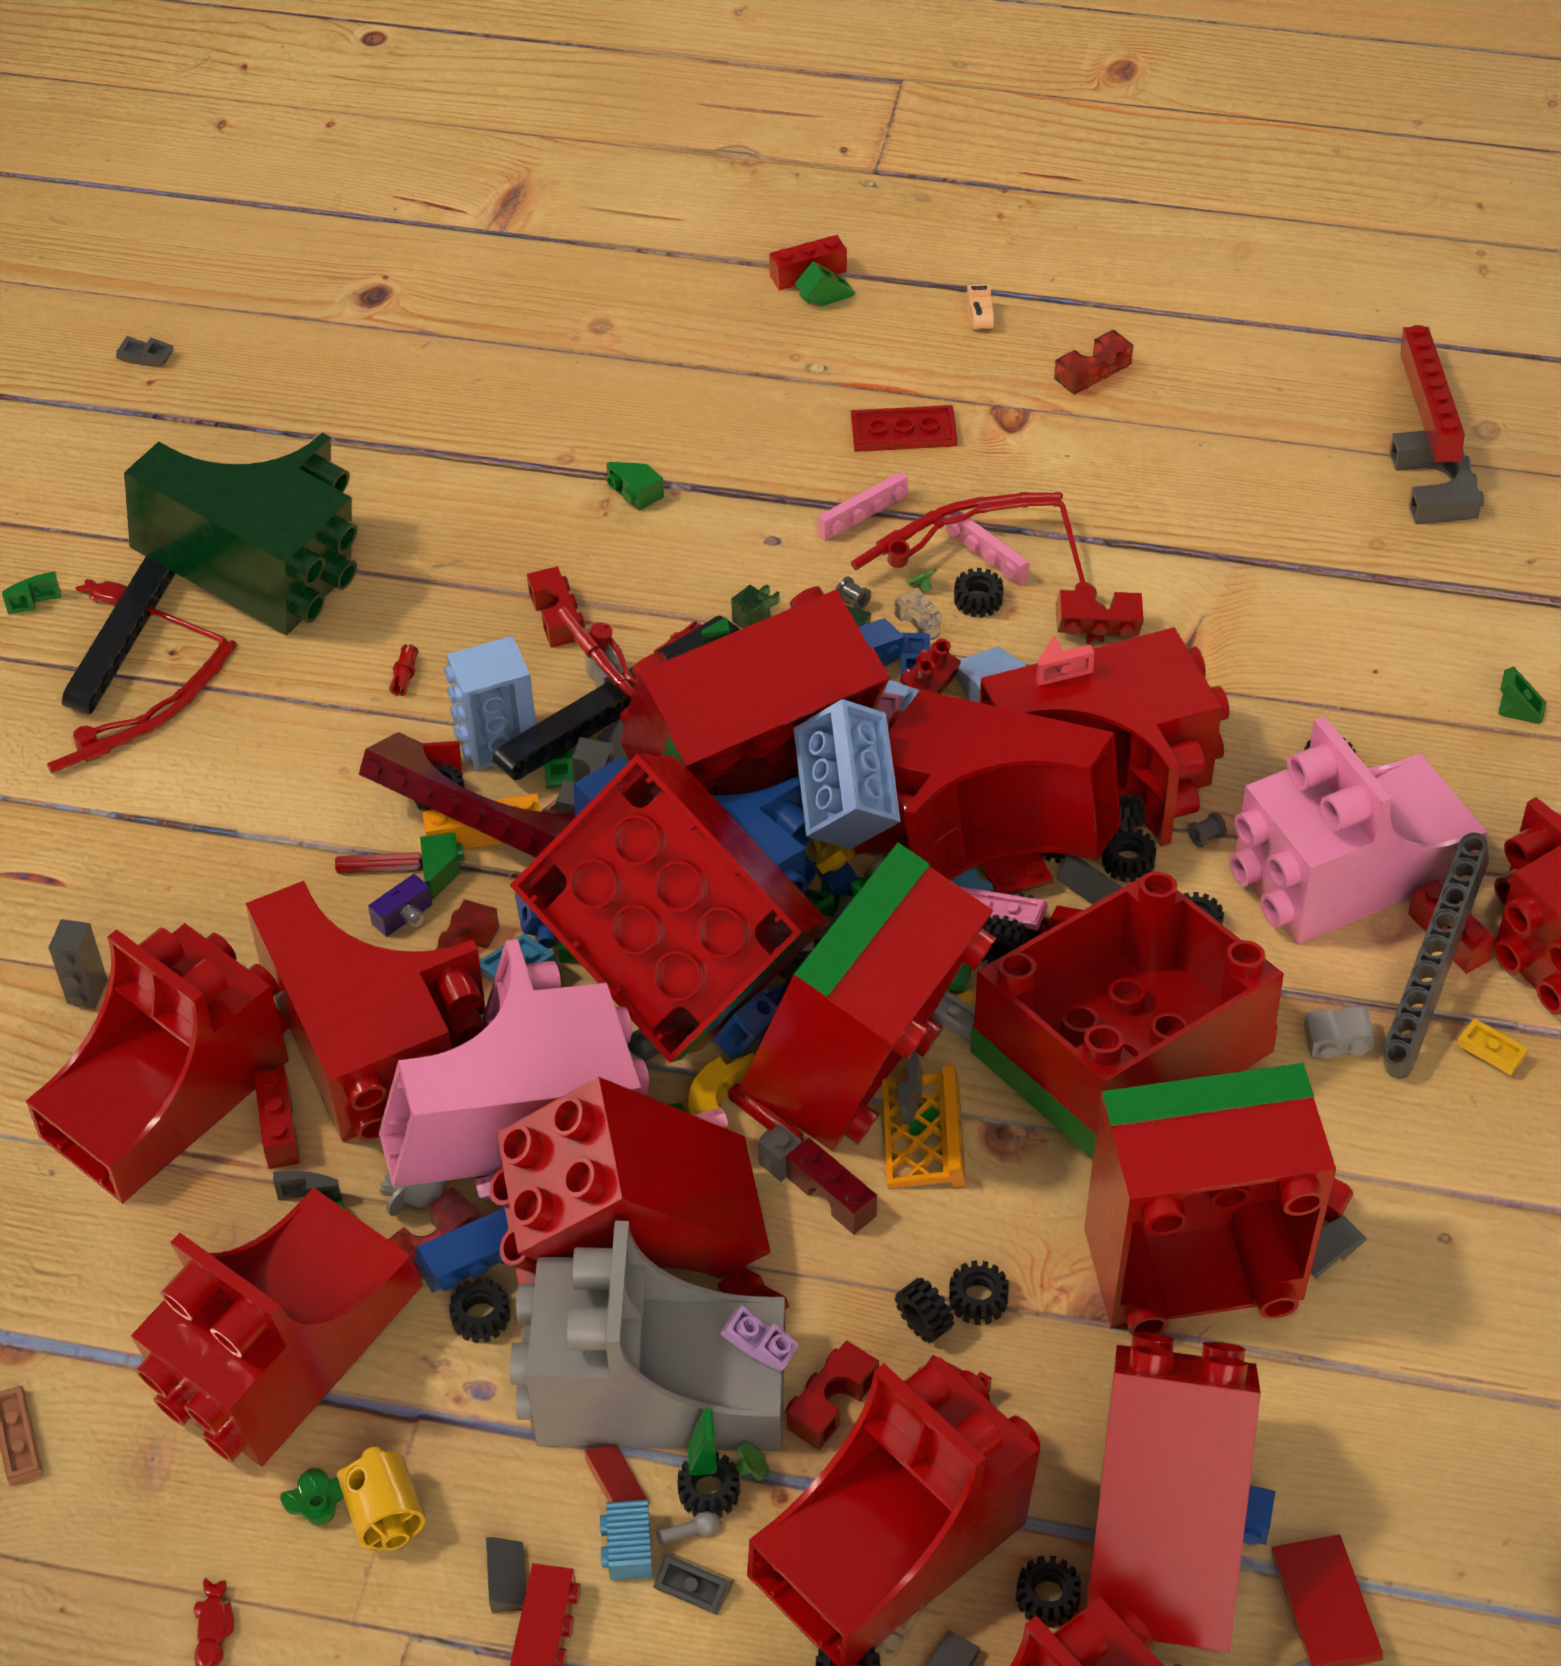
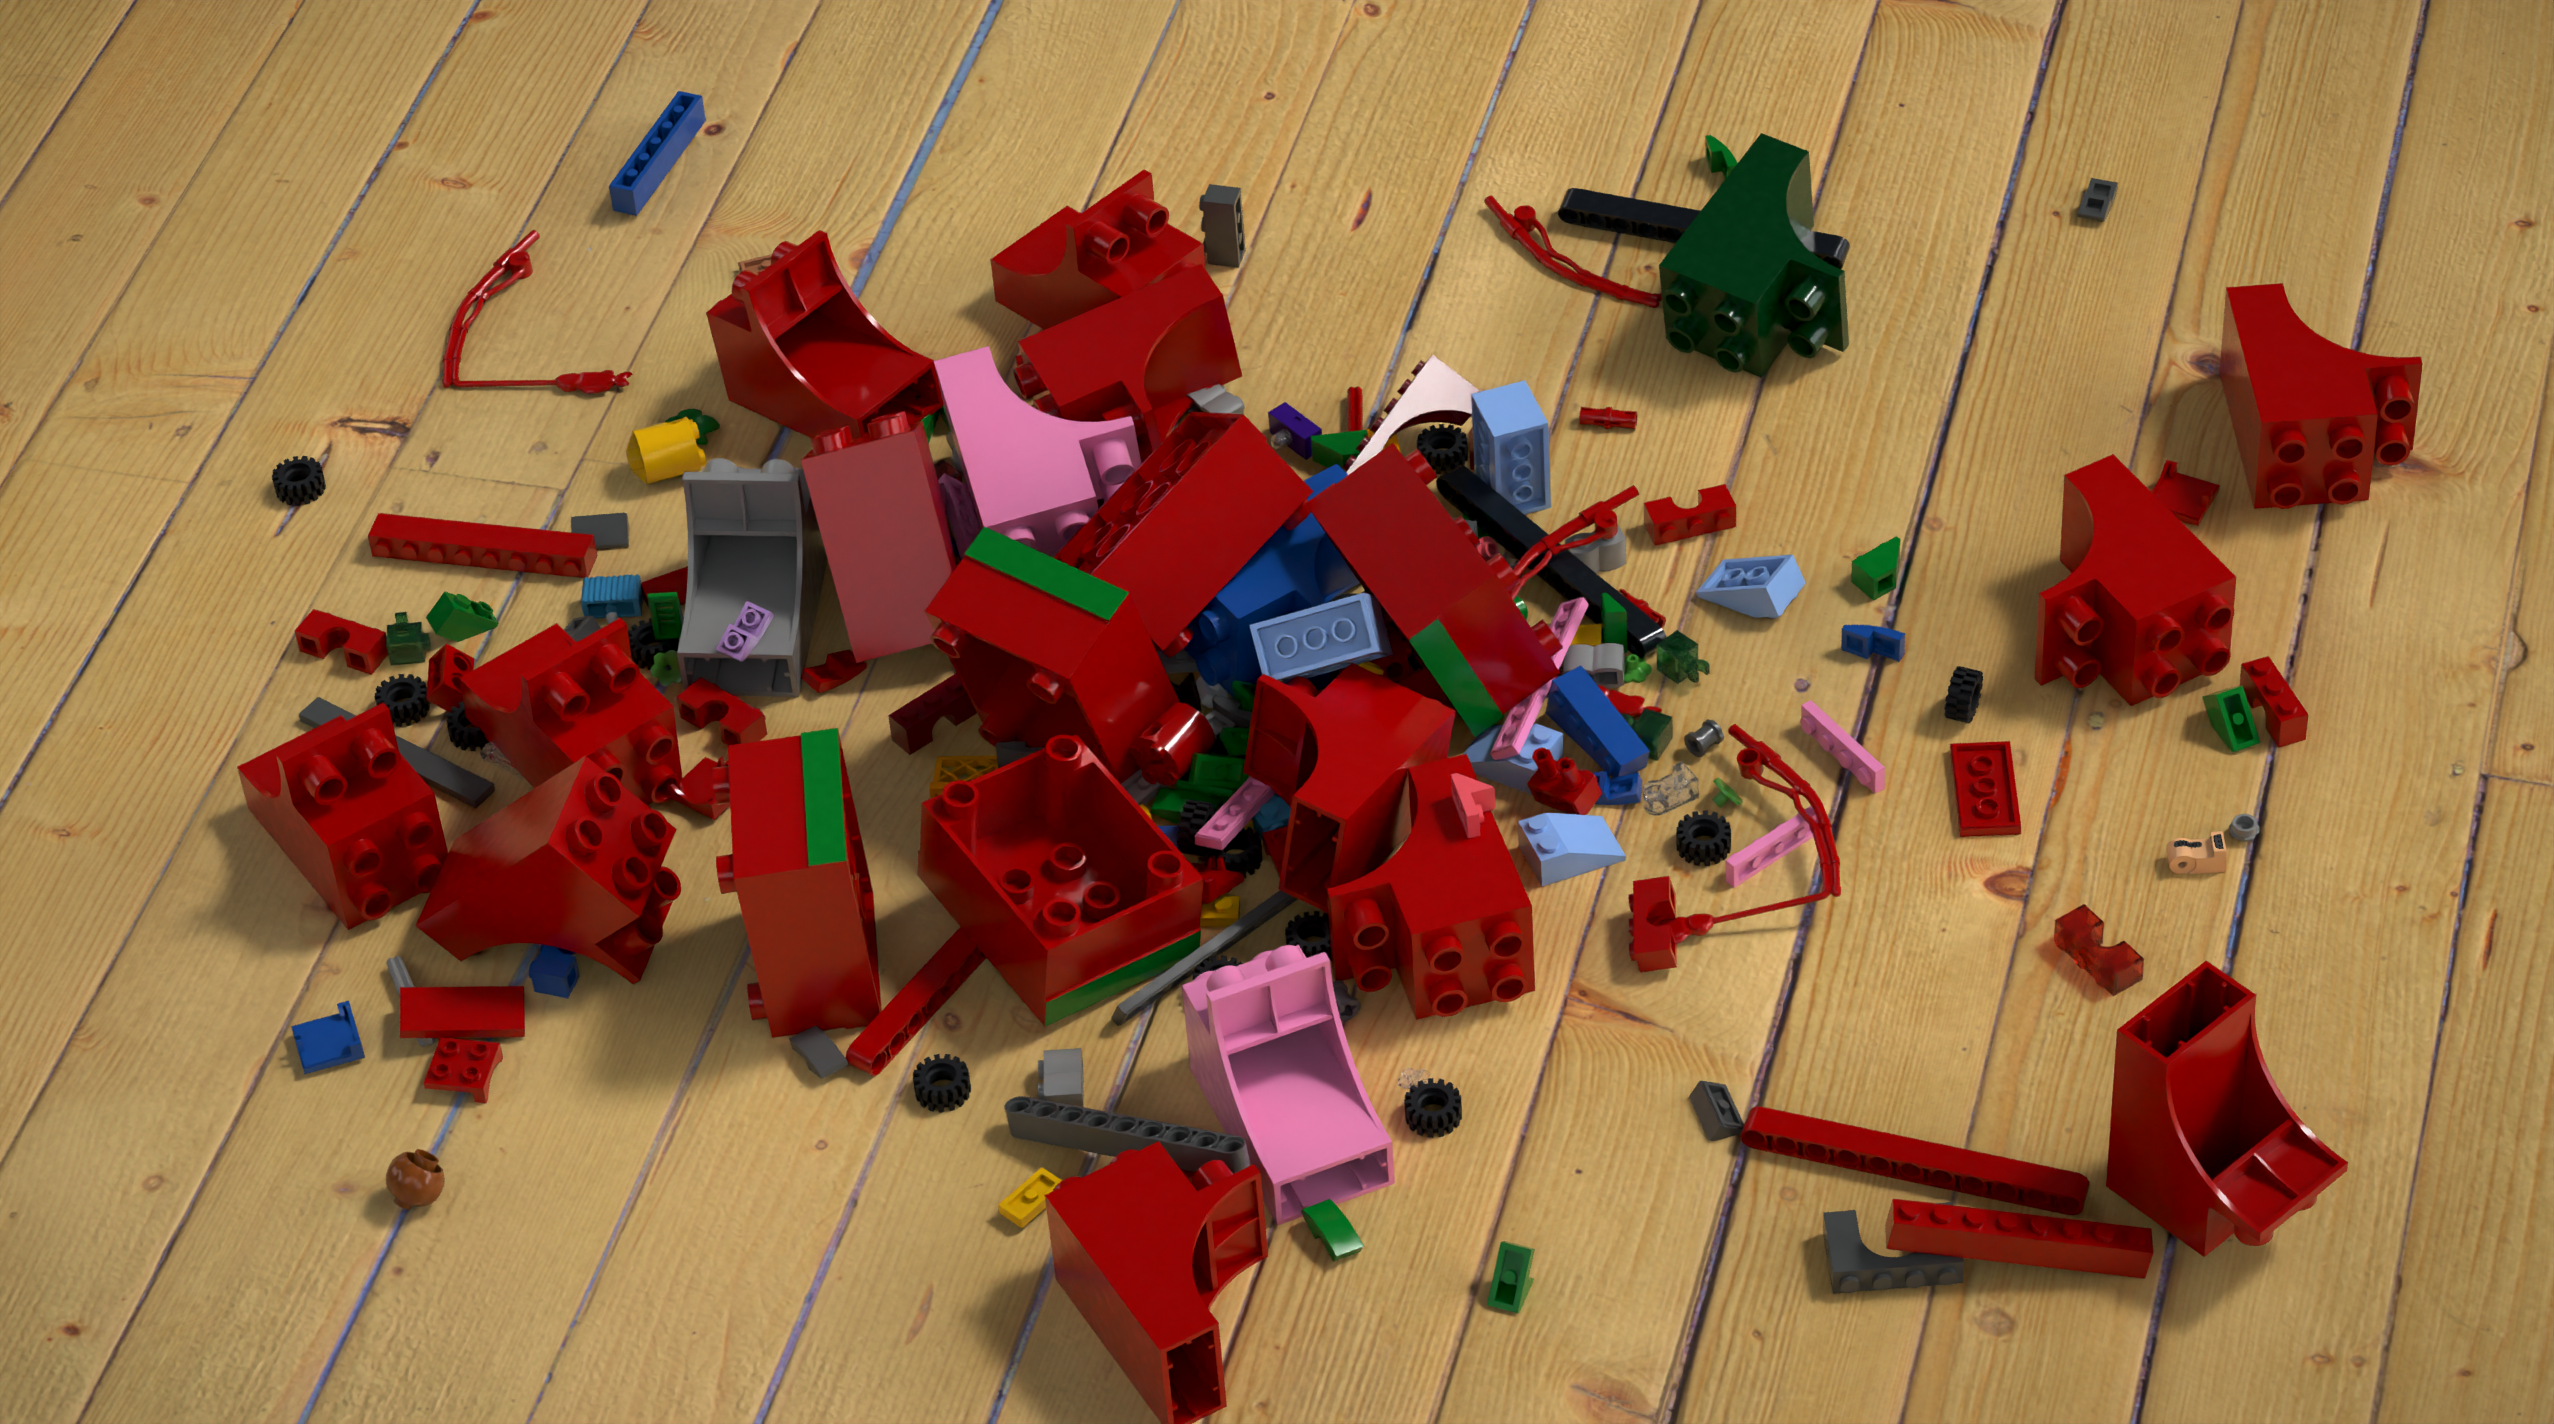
camera: 95 degrees right, 5 degrees down
(477, 217) = (2309, 407): none -> red arch
(550, 309) = (2184, 495): none -> red piece
(653, 562) = (1754, 585): none -> light blue slope
(701, 306) = (2141, 593): none -> red arch
(730, 486) = (1866, 639): none -> blue slope
(803, 436) = (1963, 694): none -> black tyre
(947, 285) = (2244, 827): none -> light grey plate
(1297, 584) = (1716, 1110): none -> dark grey slope
(1337, 468) = (1915, 1160): none -> red beam
(1347, 254) = (2201, 1123): none -> red arch
(1361, 1119) = (945, 1095): none -> black tyre
(1408, 1590) = (463, 1067): none -> red piece
(1495, 817) = (1333, 1228): none -> green slope

